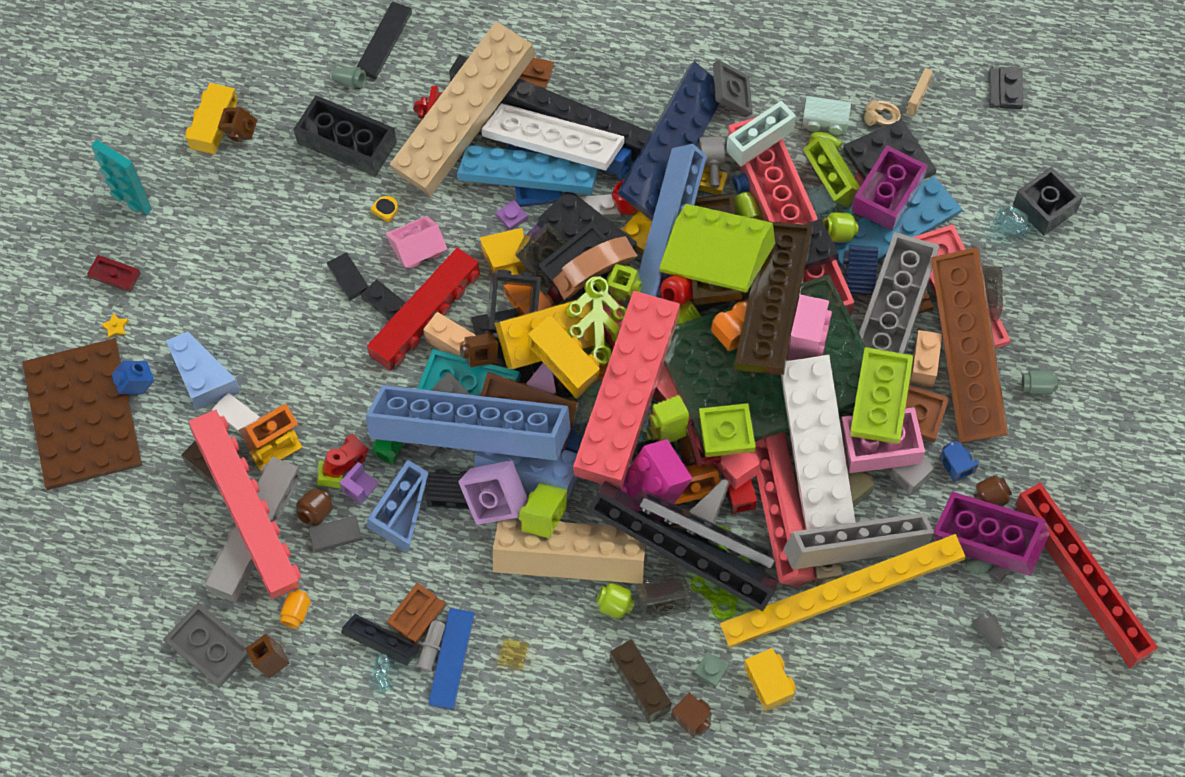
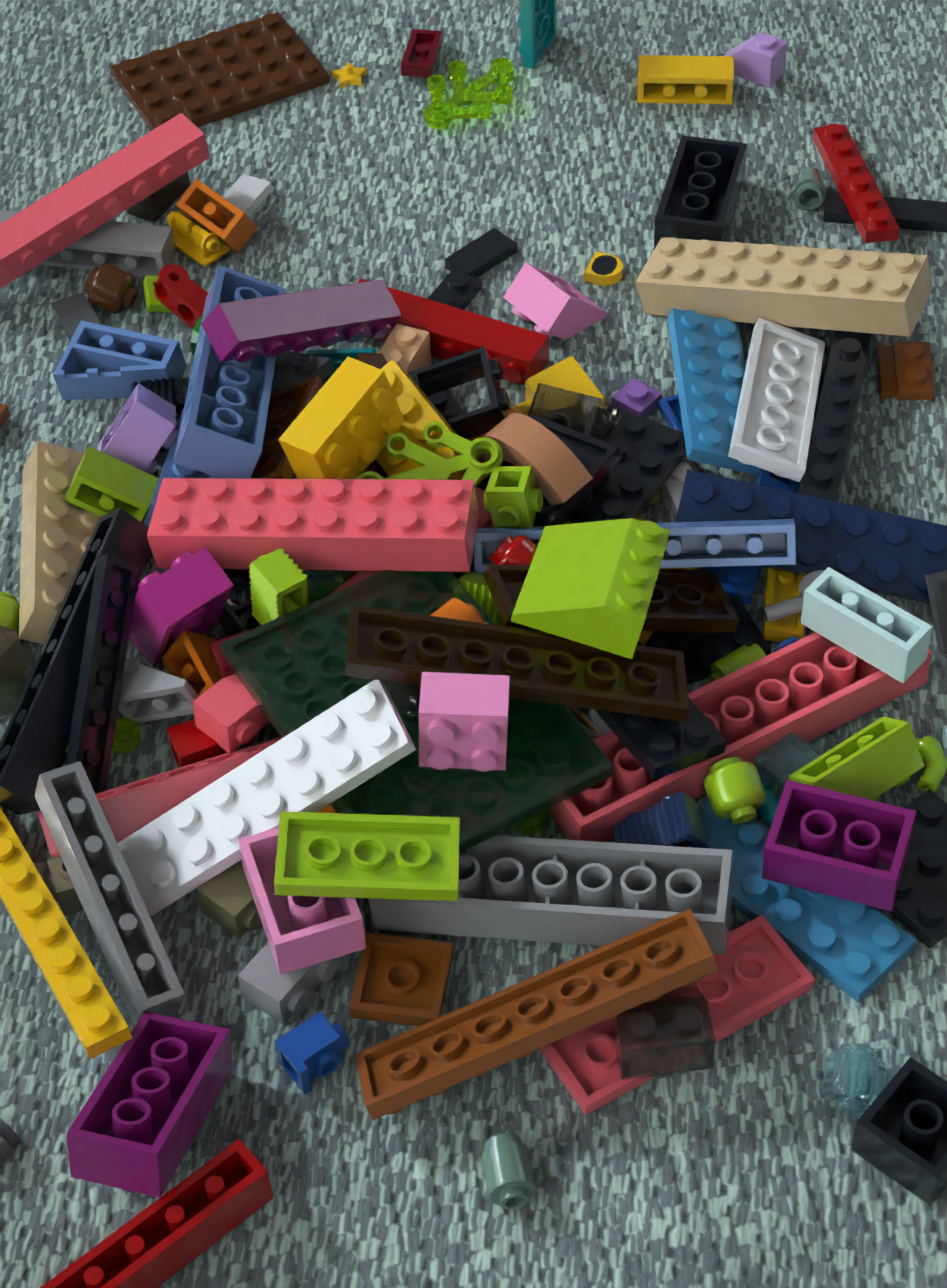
camera: 80 degrees right, 15 degrees down
(133, 377) = (268, 91): blue brick -> none
(172, 254) = (441, 113): none -> clear neon green plant
(201, 372) = (292, 145): light blue wedge -> none
(204, 70) = (760, 59): none -> lavender slope
(237, 124) = (680, 86): reddish brown brick -> none
(356, 50) = (855, 184): none -> red plate
(358, 484) = (154, 318): medium lavender panel -> none
(438, 372) = (300, 320): none -> brick
(727, 430) = (260, 653): lime plate -> none
(925, 359) = (503, 962): light nougat brick -> none
(993, 490) = (255, 1116): reddish brown head -> none

